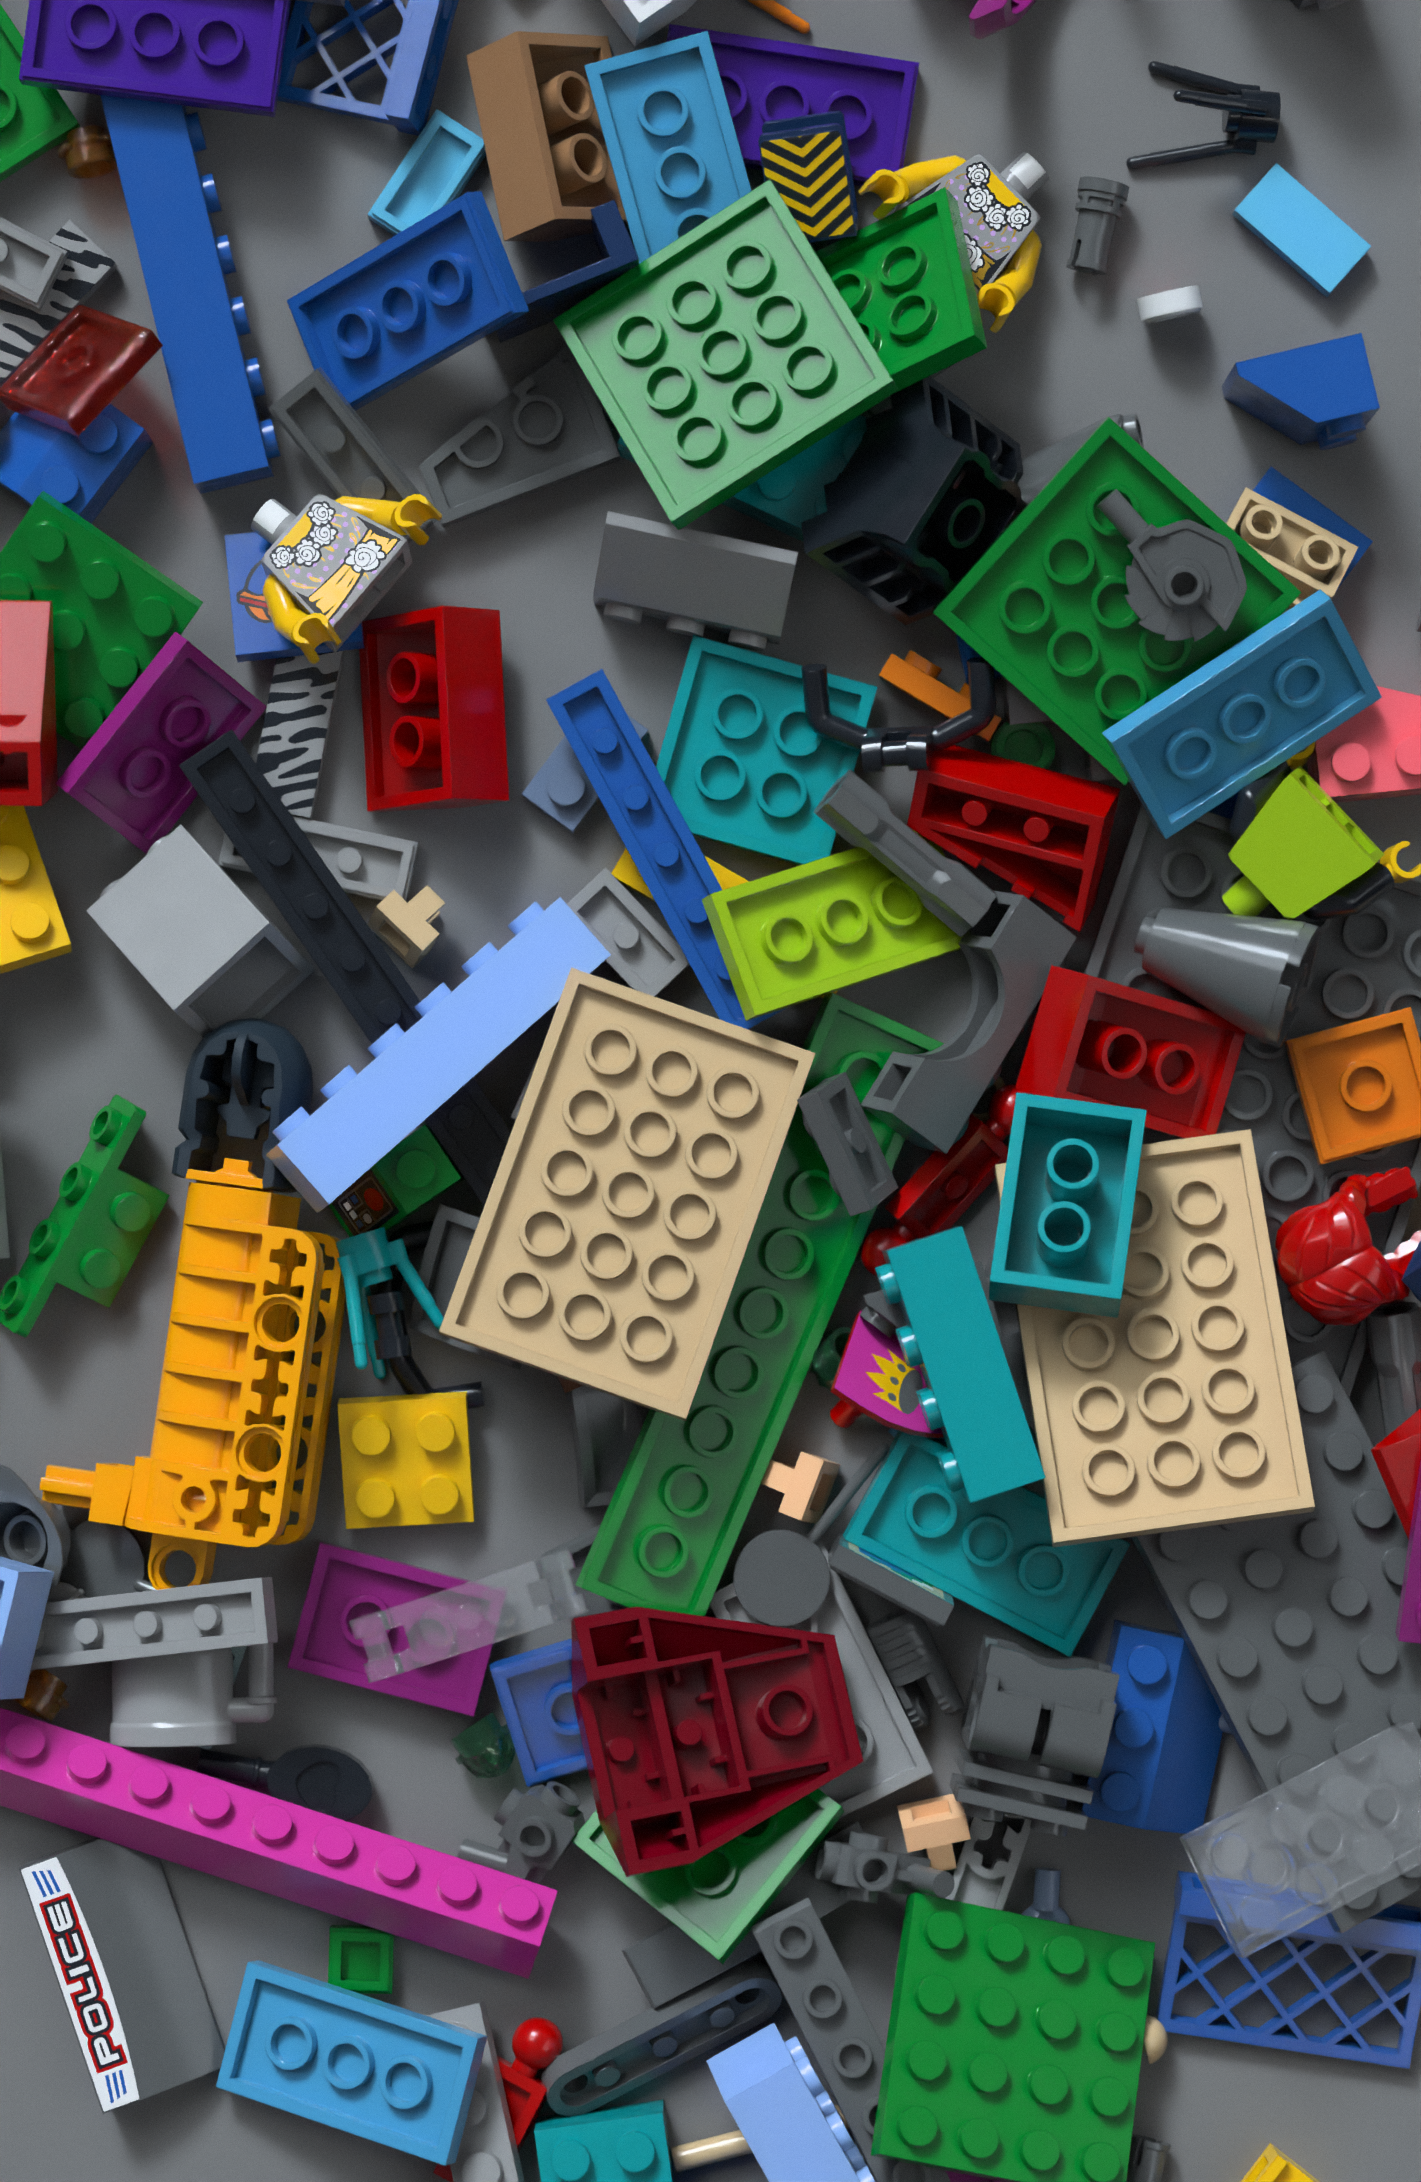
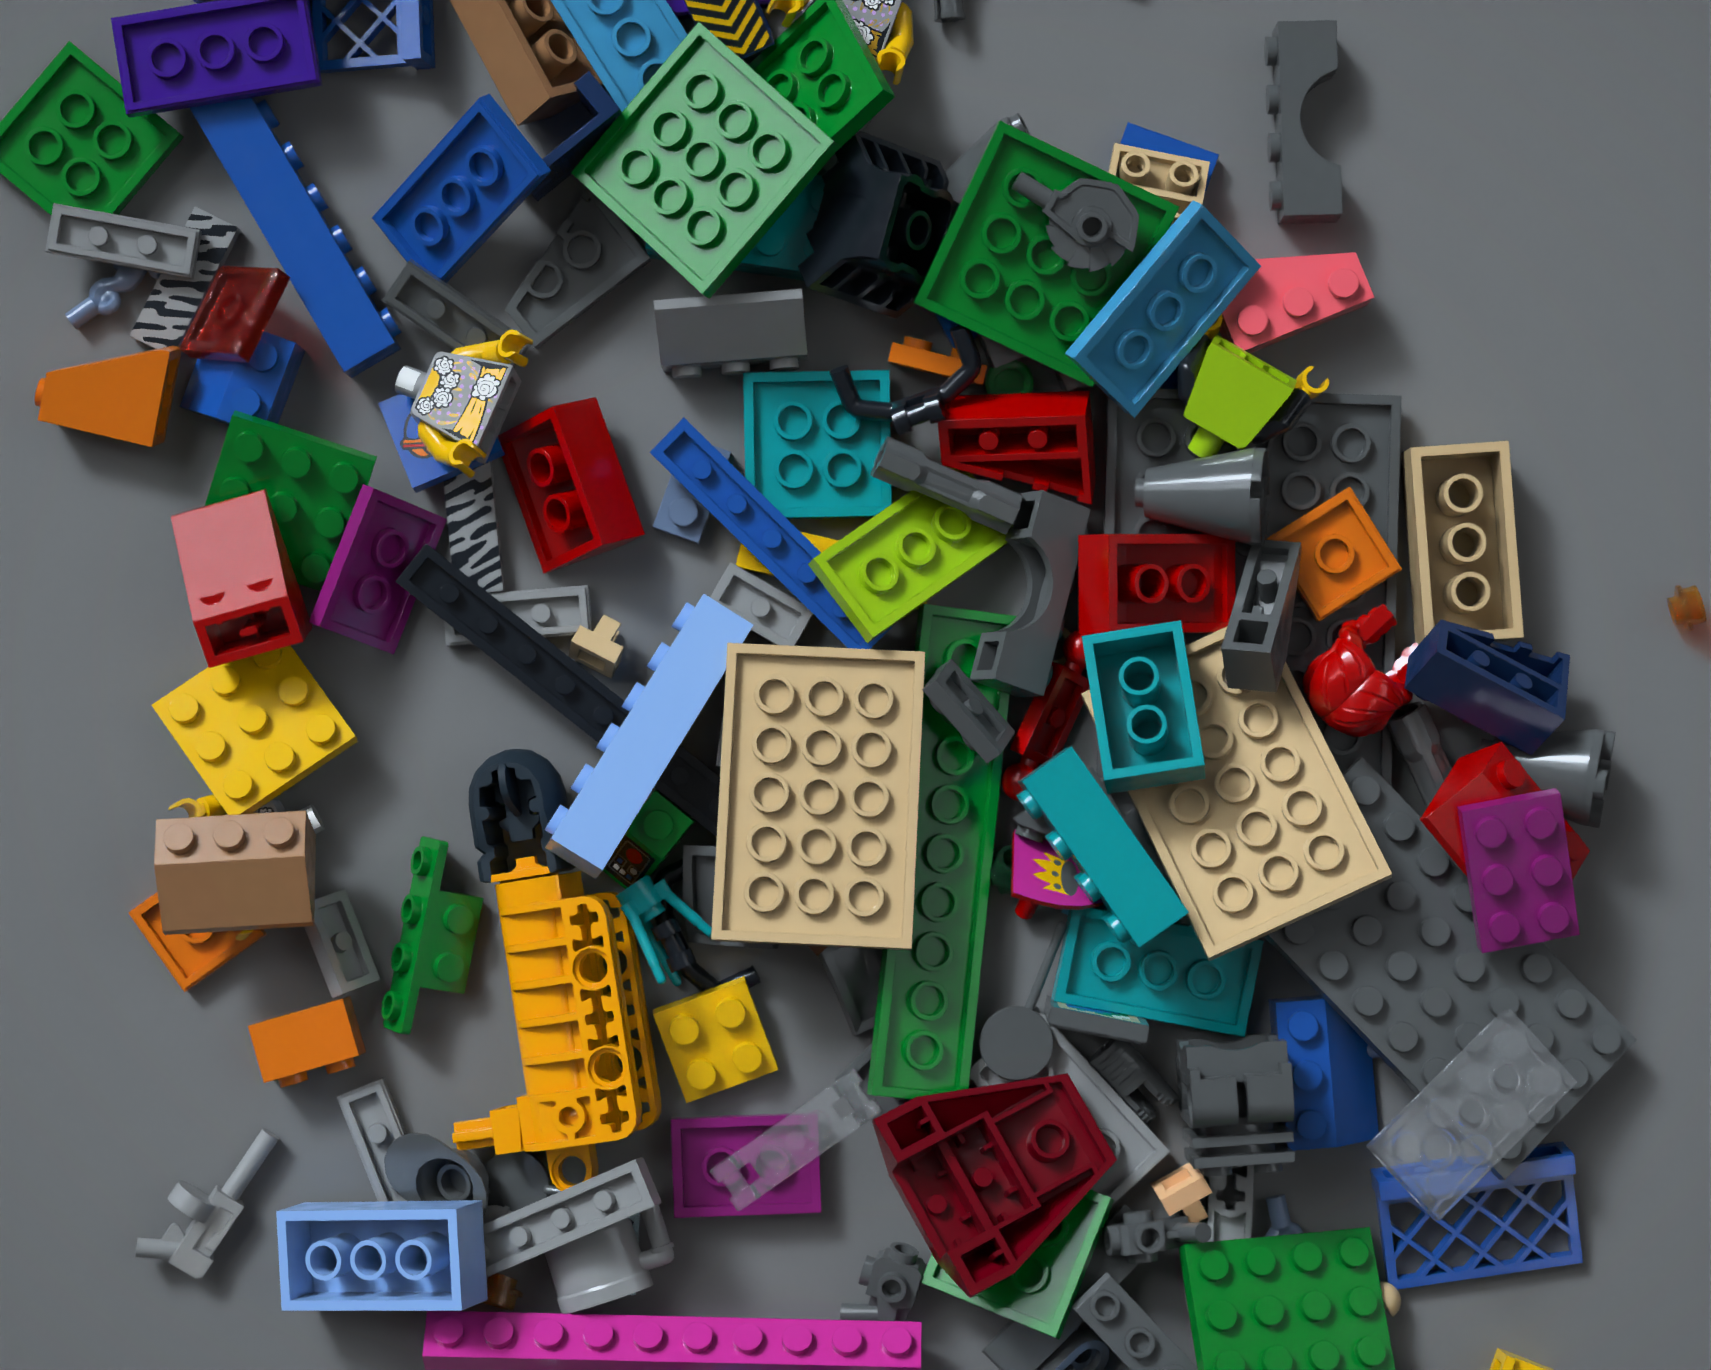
camera: 10 degrees left, 0 degrees up
(88, 152) = (193, 153): clear orange plate -> none
(198, 936) = (447, 702): light grey slope -> none
(306, 1775) = (711, 1293): black piece -> none
(429, 175) = (449, 93): medium azure tile -> none
(485, 1747) = (837, 1232): clear green plate -> none
(541, 1711) = (869, 1193): blue tile -> none
(804, 1485) = (1012, 970): light nougat tile -> none
(1170, 304) = (1018, 26): white tile -> none
(1250, 1137) = (1262, 617): none -> dark grey slope
(1309, 391) = (1139, 59): blue slope -> none

